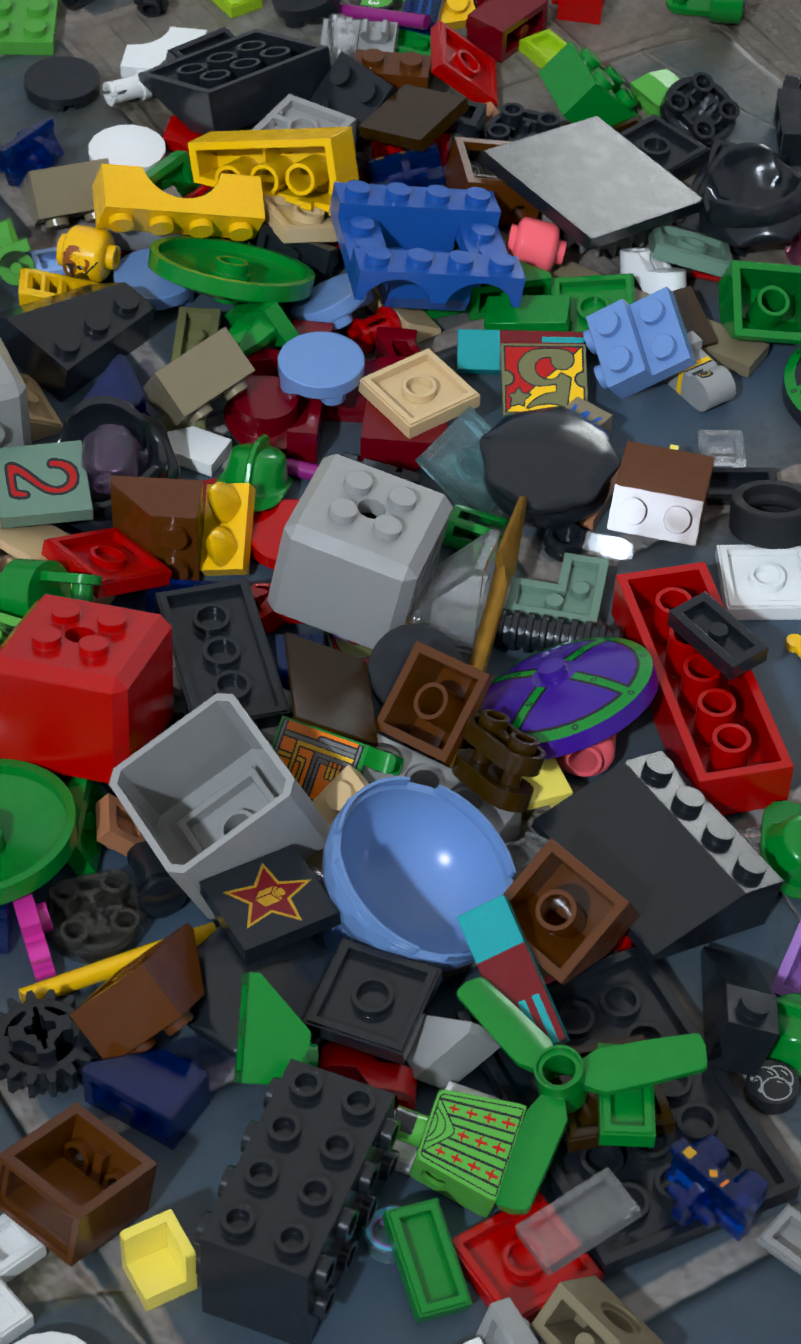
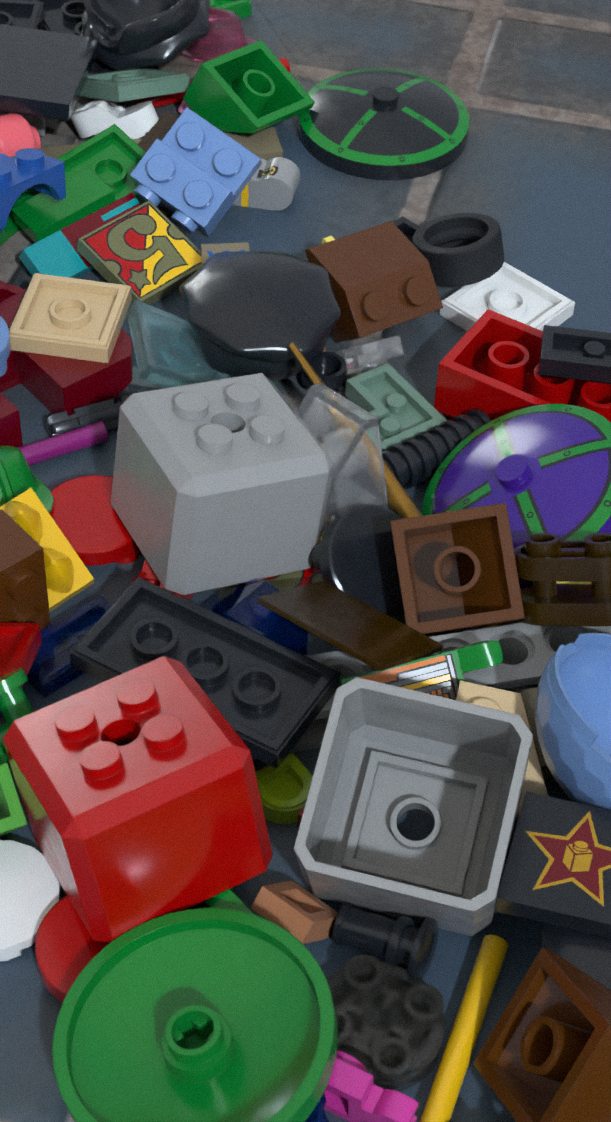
camera: 45 degrees left, 0 degrees up
(724, 445) = (345, 220): clear plate -> none

